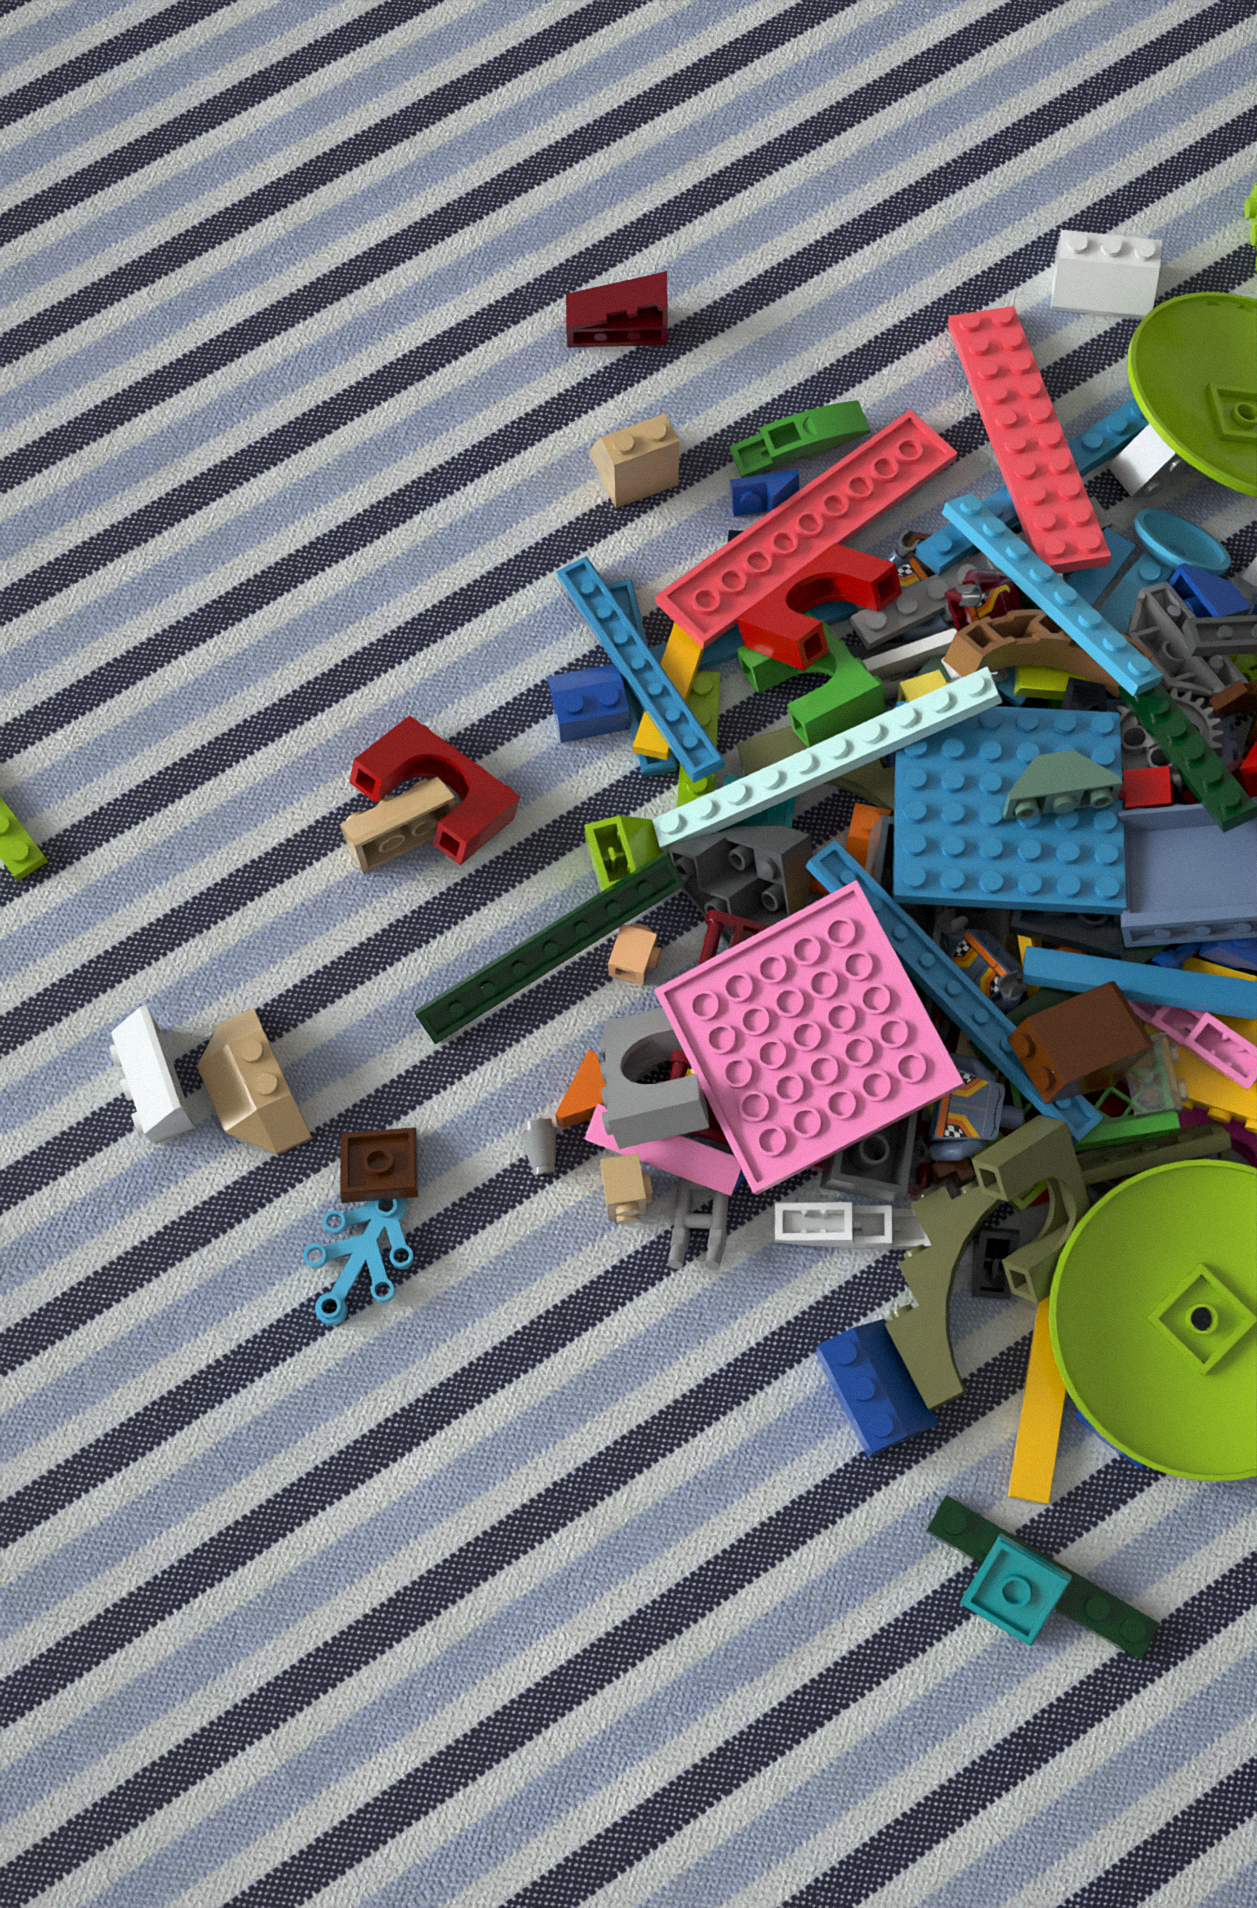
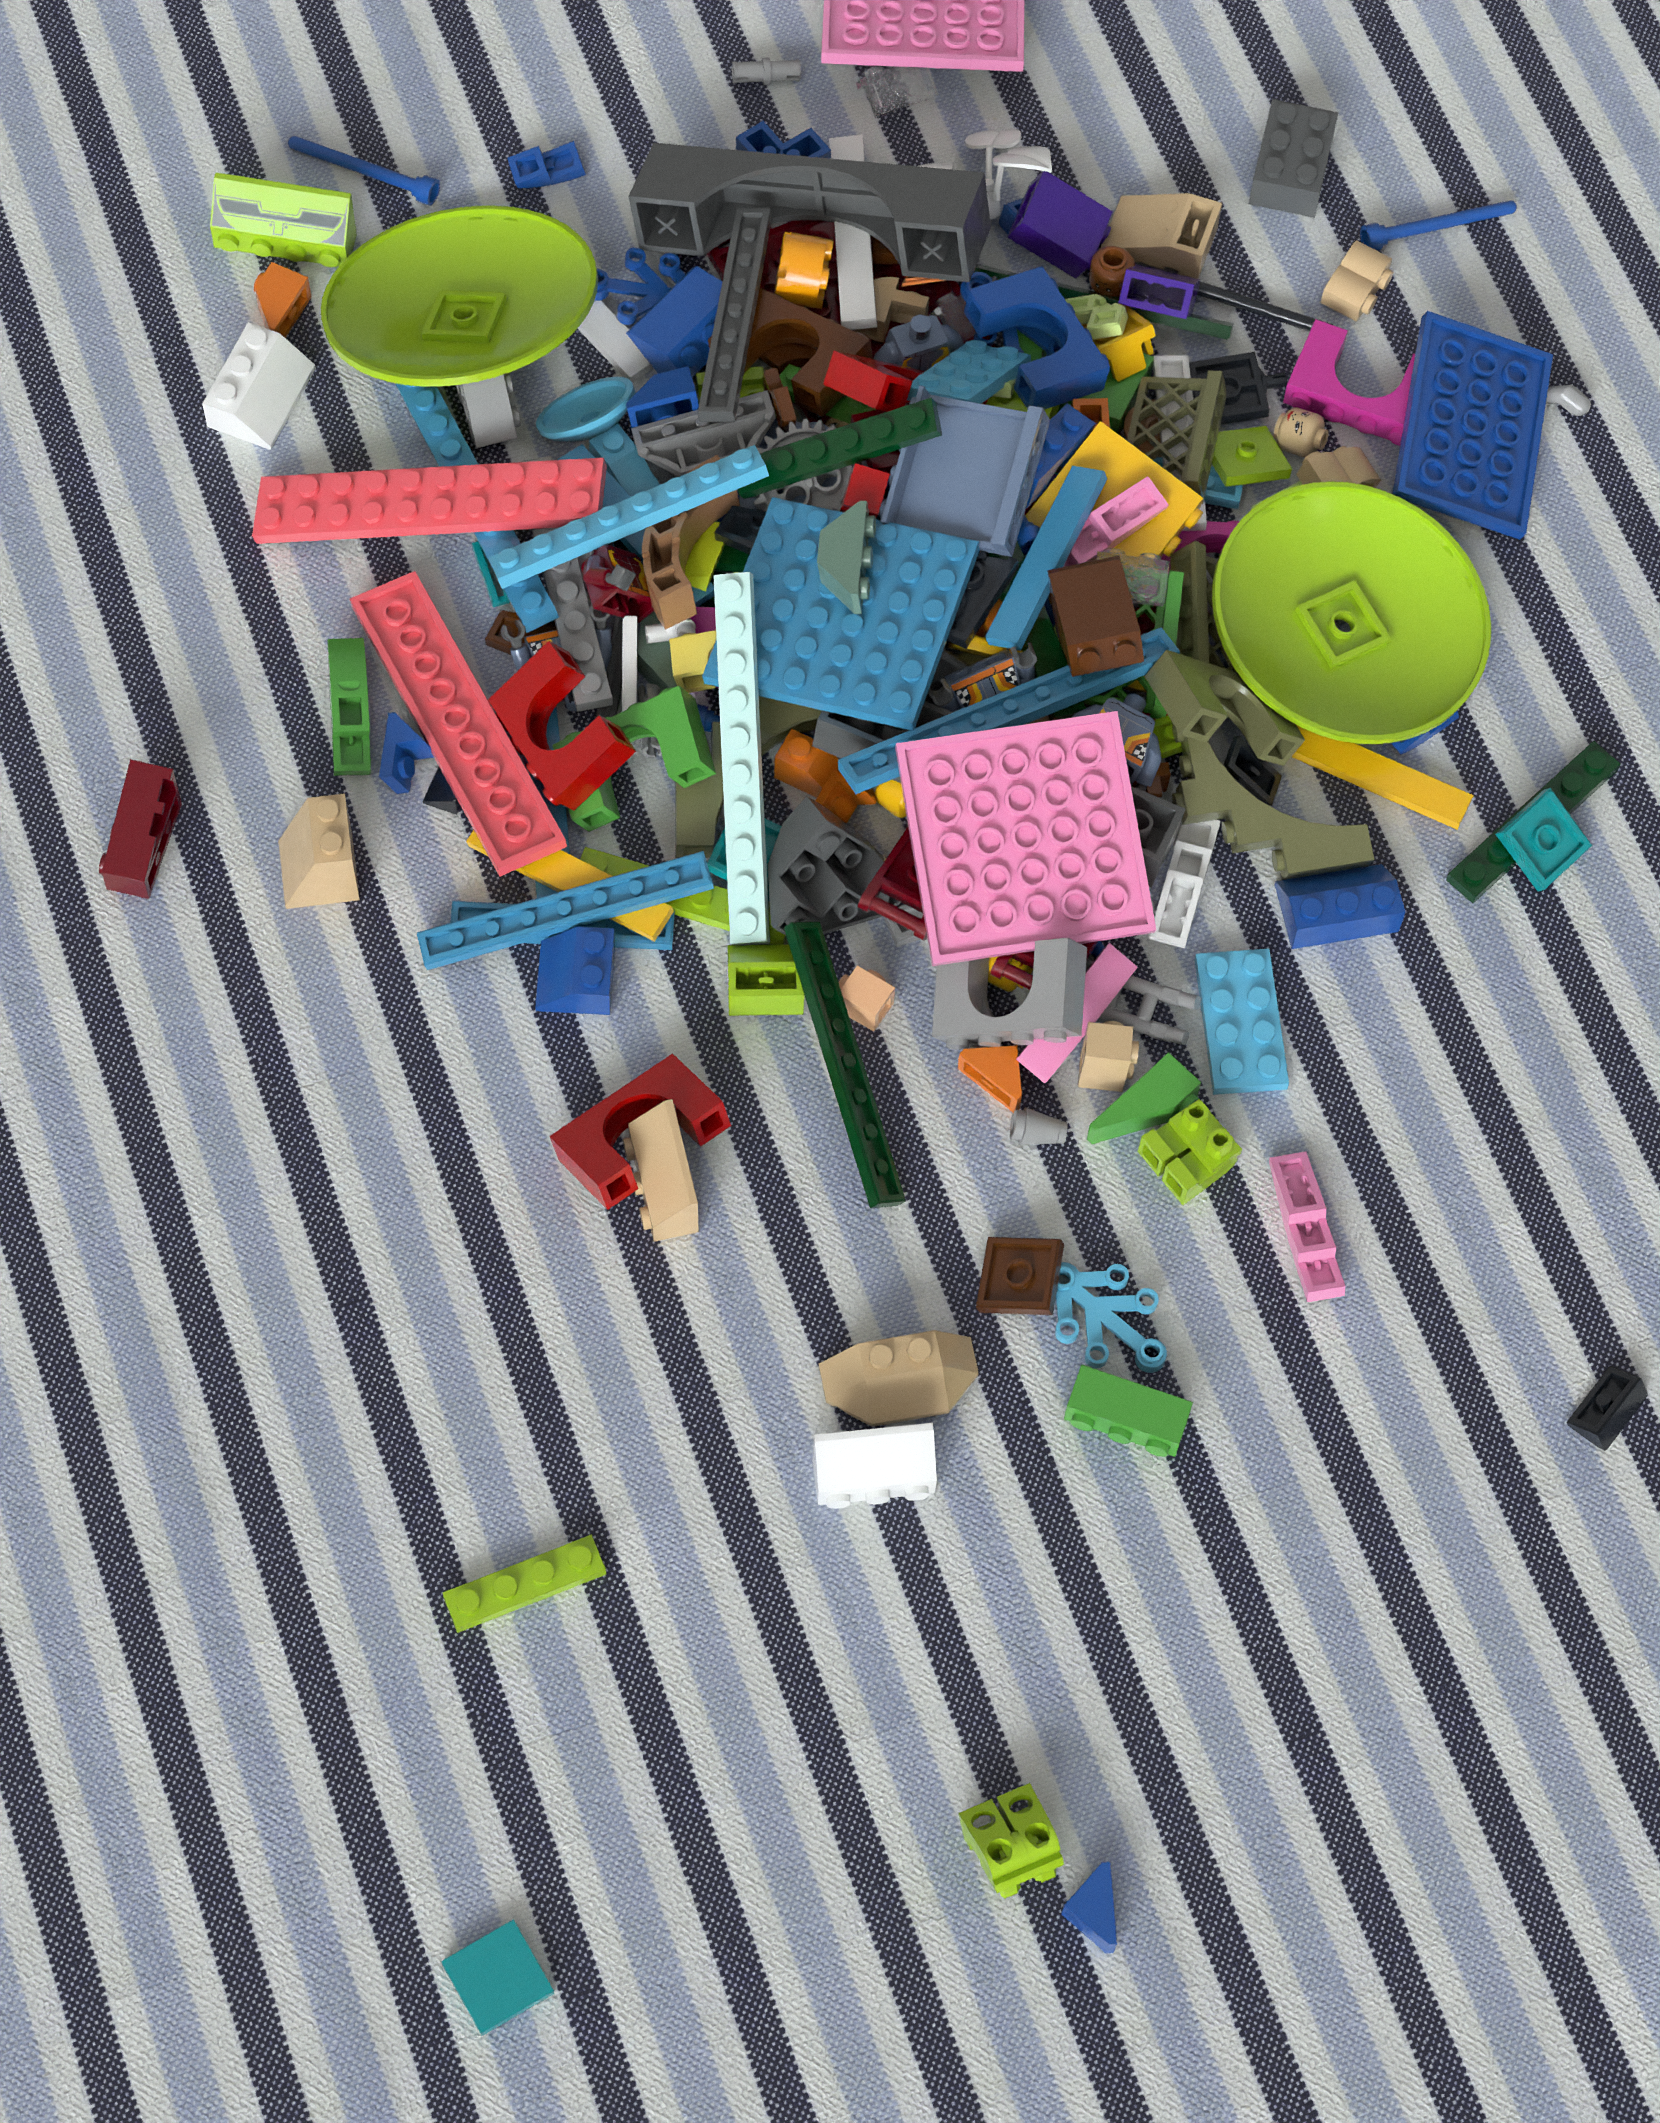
camera: 80 degrees left, 5 degrees down
(261, 1298) = (1127, 1411): none -> bright green brick
(381, 1787) = (1608, 1407): none -> black slope
(503, 1431) = (1307, 1226): none -> bright pink slope
(568, 1299) = (1190, 1151): none -> lime hips
(602, 1250) = (1148, 1102): none -> bright green slope
(715, 1318) = (1241, 1021): none -> medium azure plate
(1202, 266) = (281, 297): none -> orange slope

